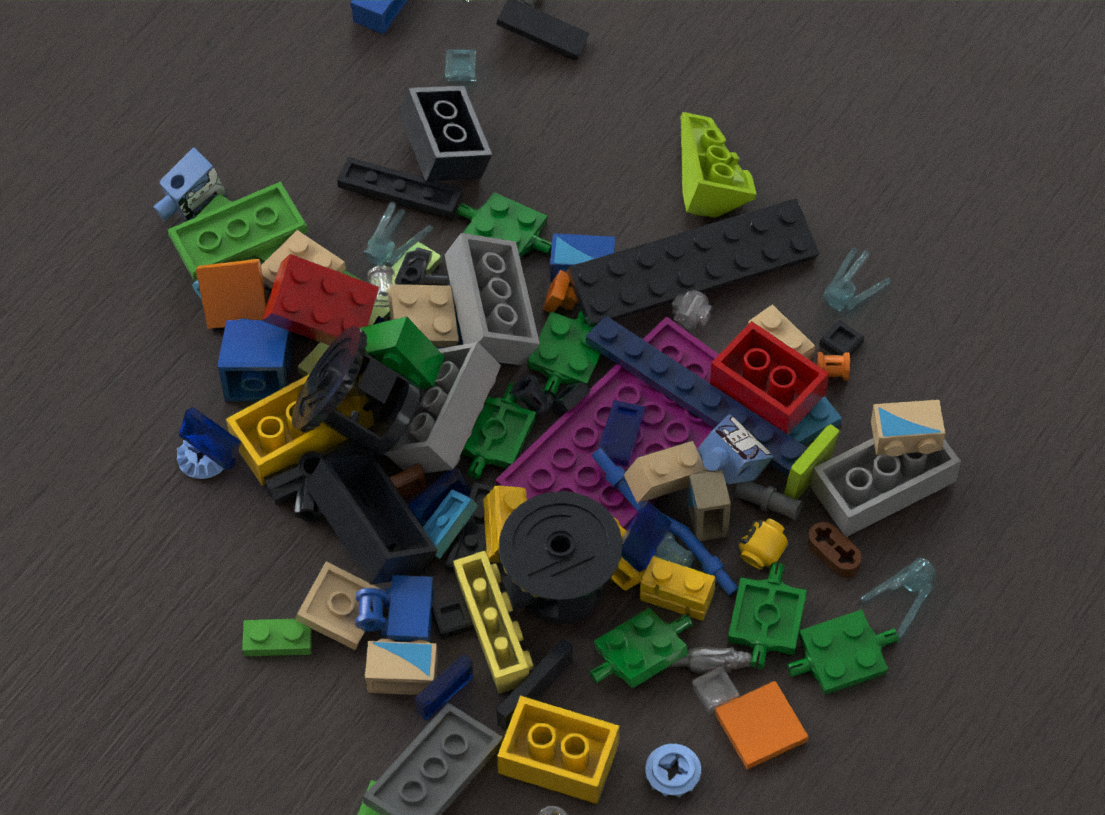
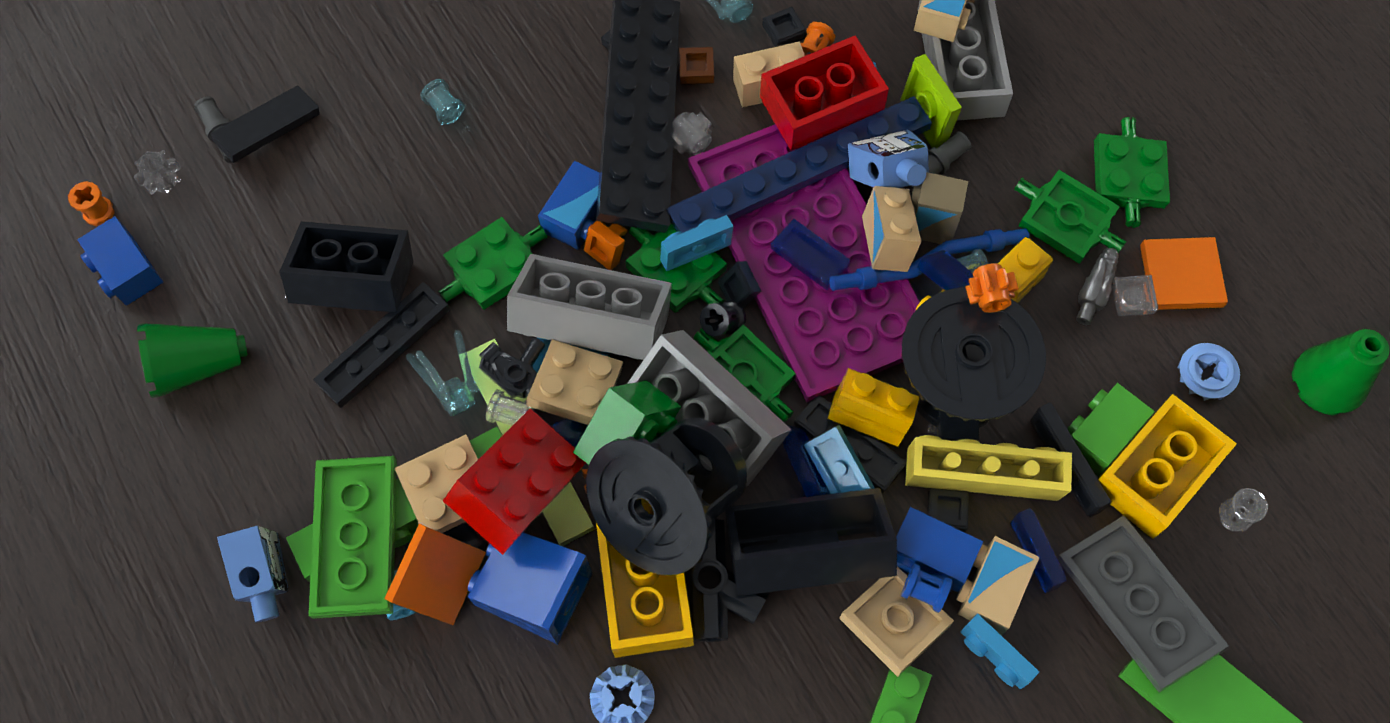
camera: 65 degrees left, 10 degrees up
(209, 438) = (622, 679): clear blue tile -> none
(325, 70) = (187, 354): none -> green cone
(351, 677) = (1009, 663): none -> dark azure plate
(409, 481) = (769, 482): reddish brown tile -> none
(460, 64) = (259, 220): clear light blue plate -> none
(579, 696) = (1109, 426): none -> bright green brick
(583, 346) = (695, 243): none -> dark azure plate
(613, 528) = (992, 287): none -> orange gear
(627, 132) = (442, 101): none -> clear light blue bush
(640, 648) = (1071, 341): green plate -> none
(711, 173) = (542, 53): lime wedge -> none
(762, 289) = (696, 65): none -> reddish brown plate
(763, 543) = (990, 184): yellow head -> none
(837, 547) = (1013, 127): reddish brown beam -> none
(914, 577) = (1078, 77): clear light blue plant -> none

